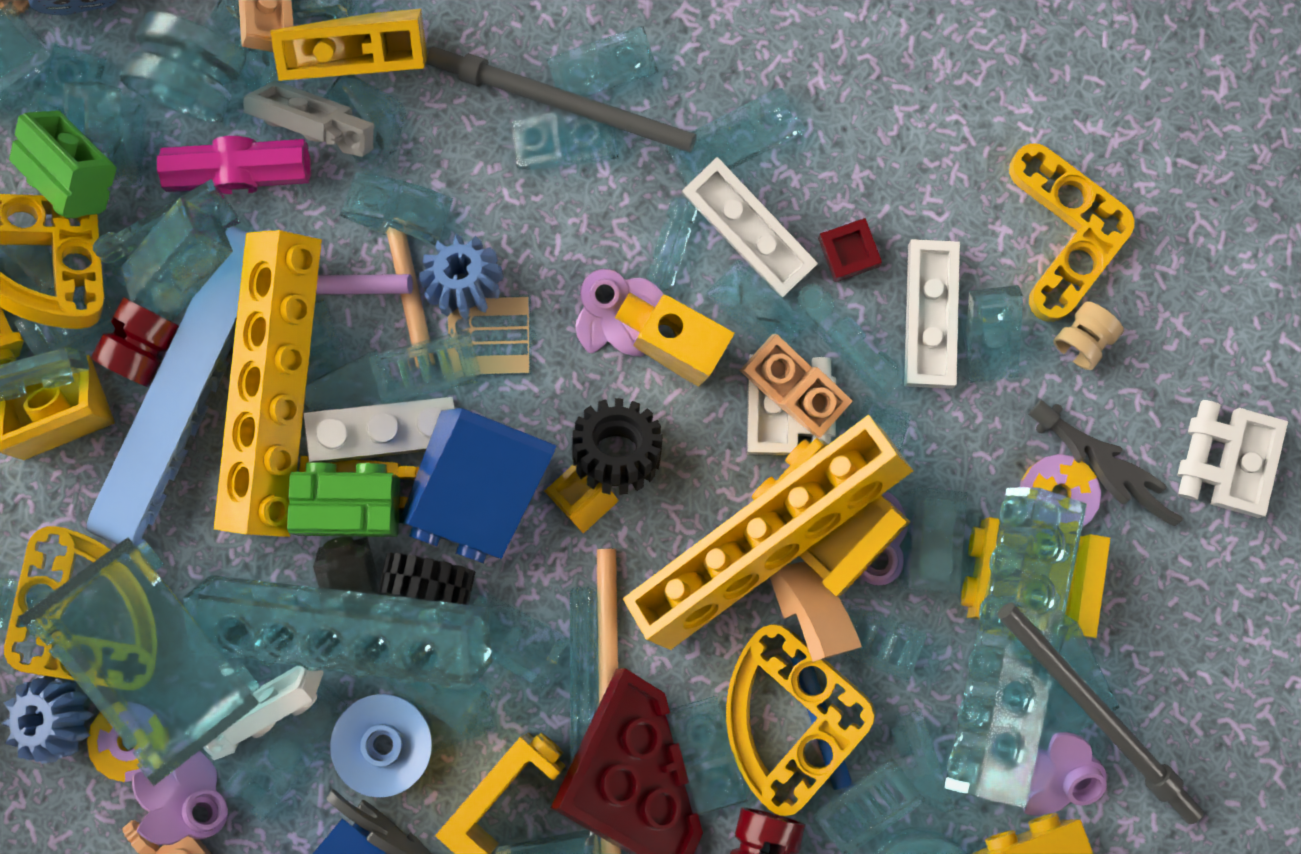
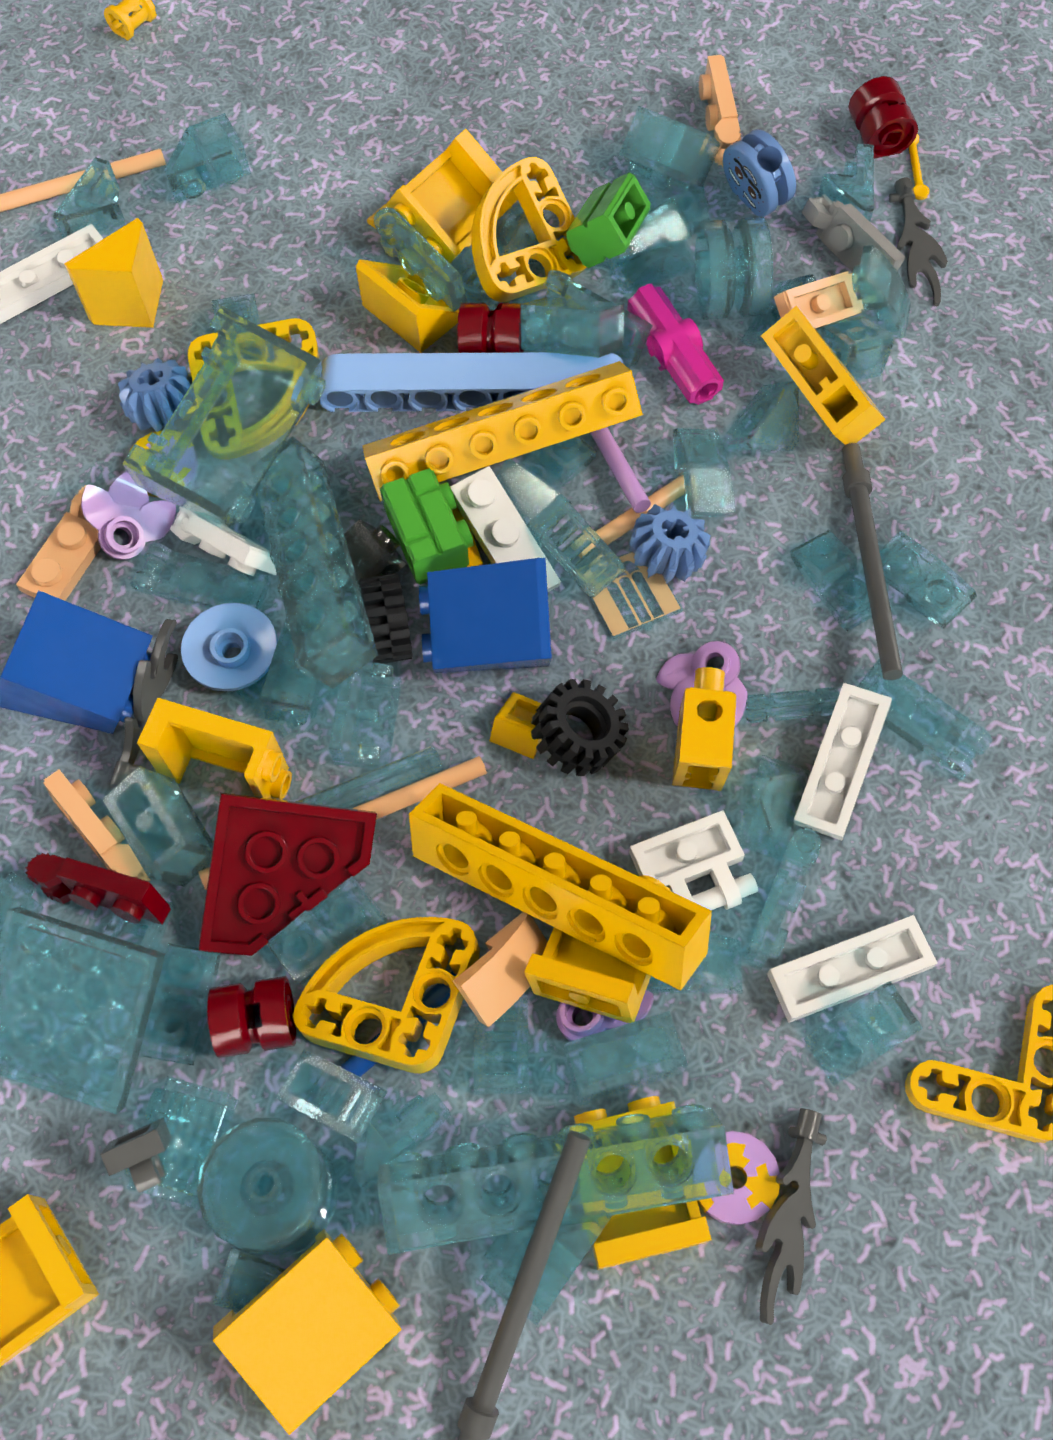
camera: 65 degrees right, 15 degrees down
(311, 116) = (745, 375): light grey hinge -> none
(796, 386) = (714, 858): light nougat slope -> none
(850, 250) = (872, 864): dark red plate -> none
(1065, 776) = (441, 1291): lavender plate -> none
(1089, 334) = (914, 1137): tan wheel -> none
(1247, 462) = (865, 1376): white plate -> none

